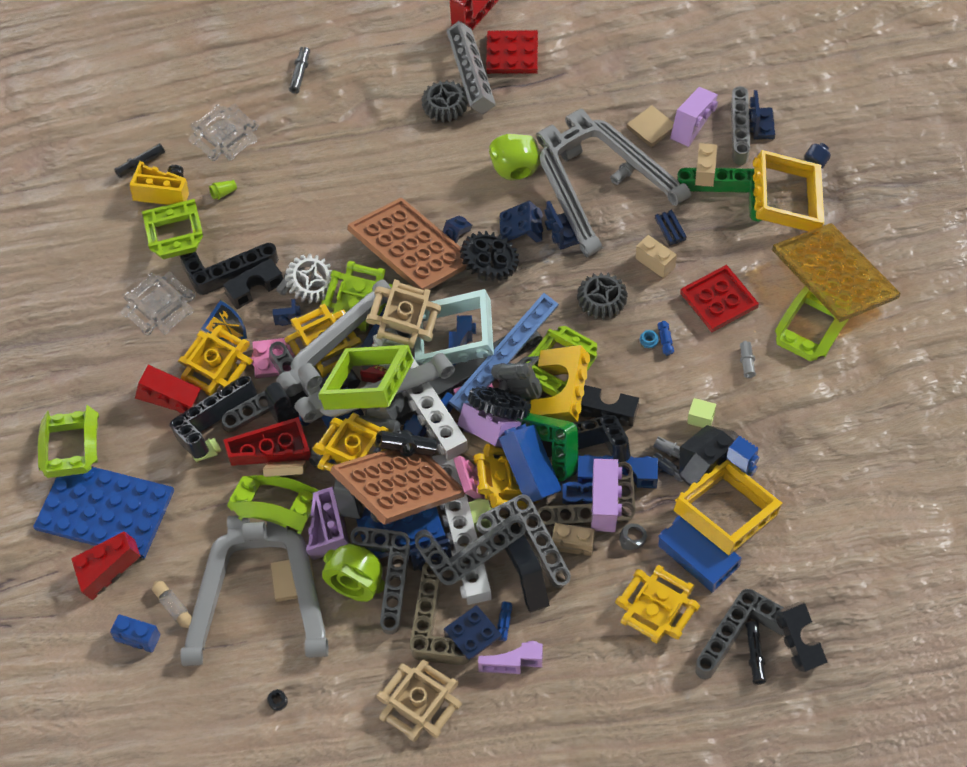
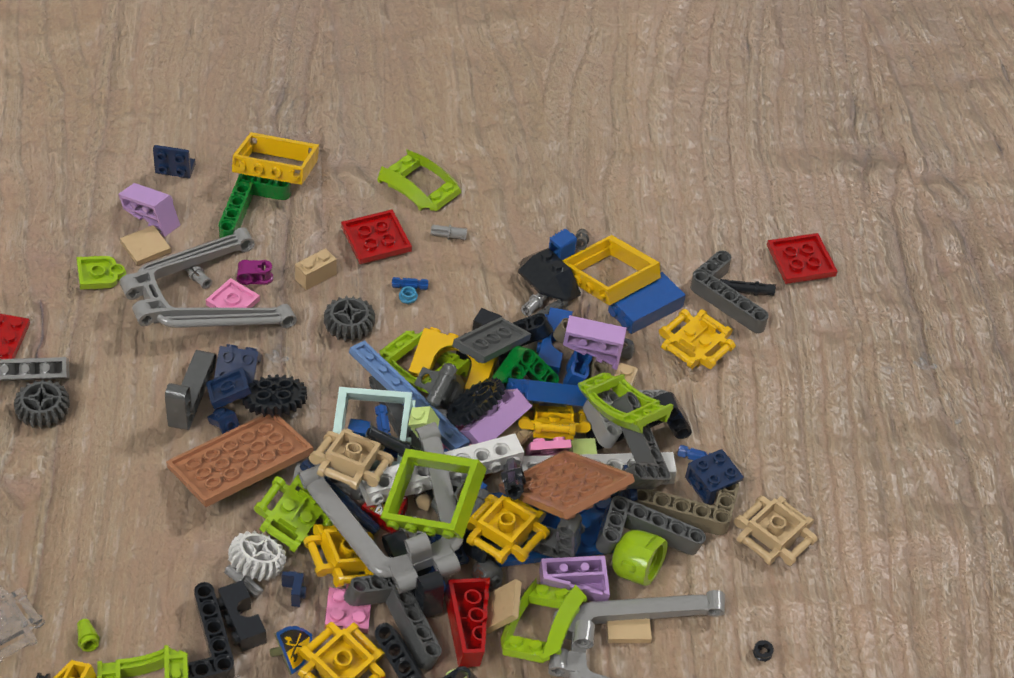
camera: 90 degrees left, 10 degrees down
(427, 347) = (388, 440): none -> black pin
(449, 330) = (382, 418): none -> blue axle
(464, 364) = (422, 416): none -> yellowish green brick
(475, 196) = (184, 399): none -> dark grey beam
(486, 219) = (228, 388): none -> dark blue plate
(496, 539) = (634, 420): none -> lime wedge
(515, 156) = (157, 348): lime piece -> none
(527, 655) = (739, 448): lavender slope -> none
(560, 228) = (255, 333): dark blue bracket -> none
(576, 401) = (491, 340): none -> dark grey plate
(601, 203) = (232, 295): none -> bright pink plate
(605, 101) = (98, 272): none -> lime plate
(639, 212) = (253, 271): none -> magenta piece
(665, 216) = (280, 255): dark blue tile -> none
(701, 413) = (505, 269): yellowish green panel -> none
(706, 164) = (228, 202): tan brick -> none
(740, 125) = (174, 179): light grey beam -> none
(769, 477) = (584, 238): none -> dark grey pin
(792, 621) = (754, 252): black arch -> none
(818, 154) = (234, 134): dark blue head -> none
(821, 709) = (801, 258): none -> red plate
(835, 272) = (376, 149): clear yellow plate -> none

